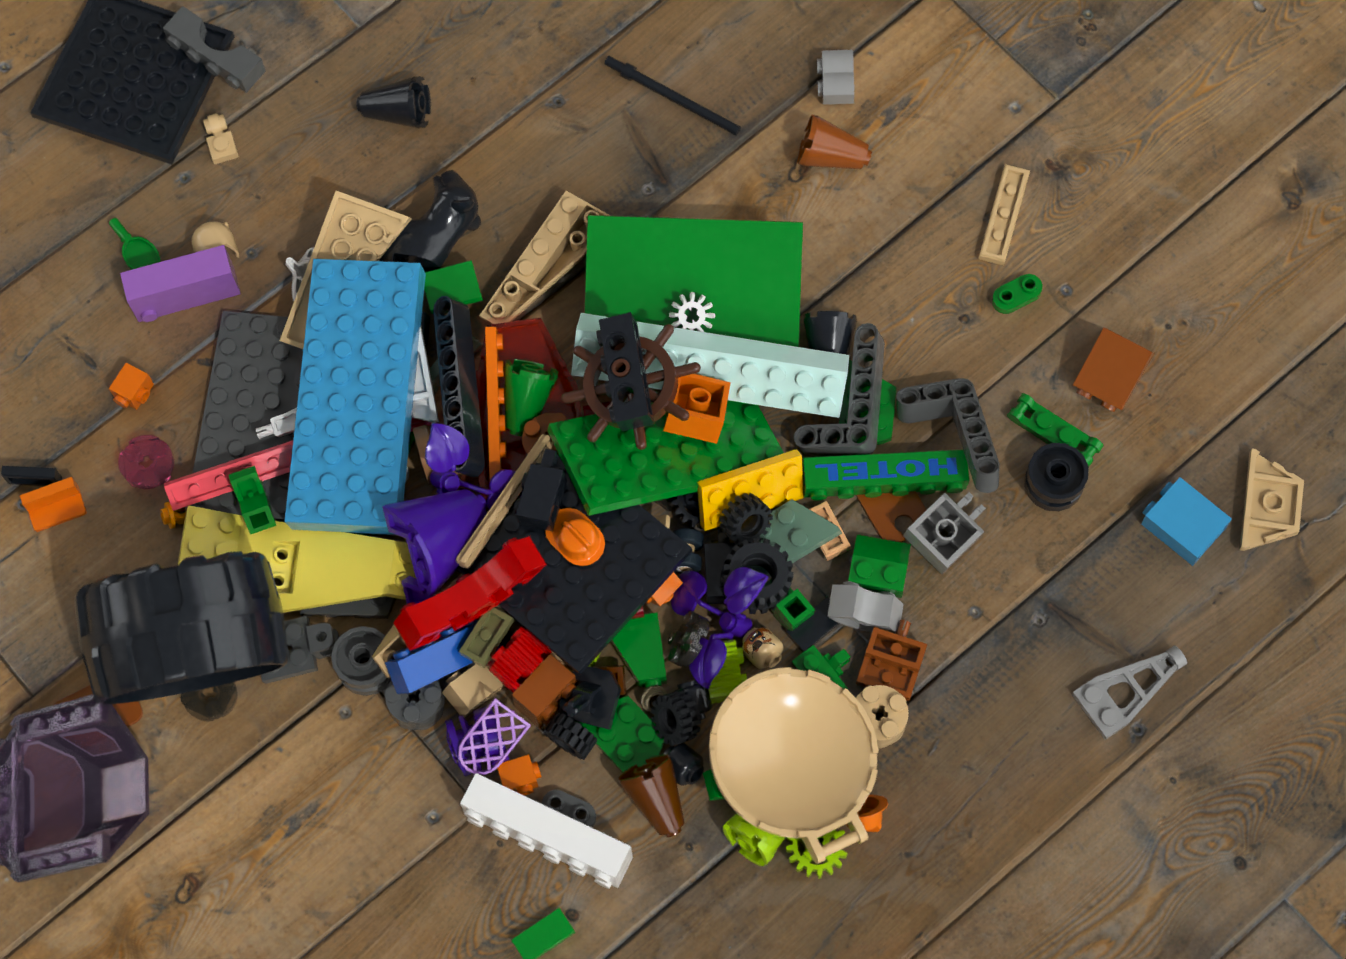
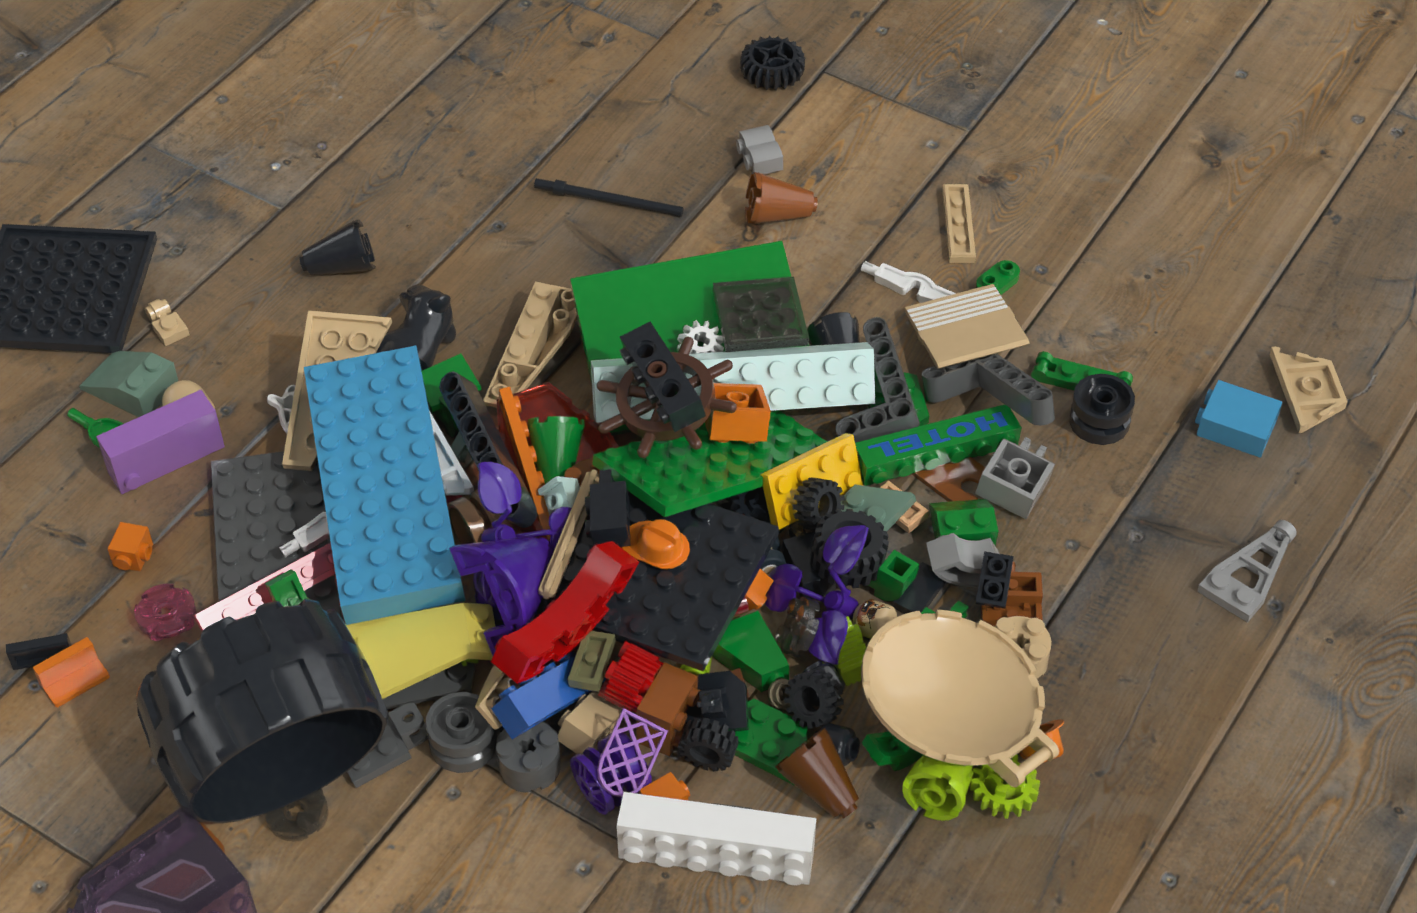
camera: 20 degrees left, 20 degrees down
(173, 201) = (132, 381): none -> sand green slope
(238, 66) = (169, 253): dark grey arch -> none
(512, 451) = (559, 492): none -> light aqua brick
(755, 301) = (760, 314): none -> clear smoke plate
(879, 643) = (994, 580): none -> black slope
(943, 292) = (904, 281): none -> white piece
(960, 348) = (966, 326): none -> tan piece
(1112, 370) = (1116, 311): dark orange slope -> none

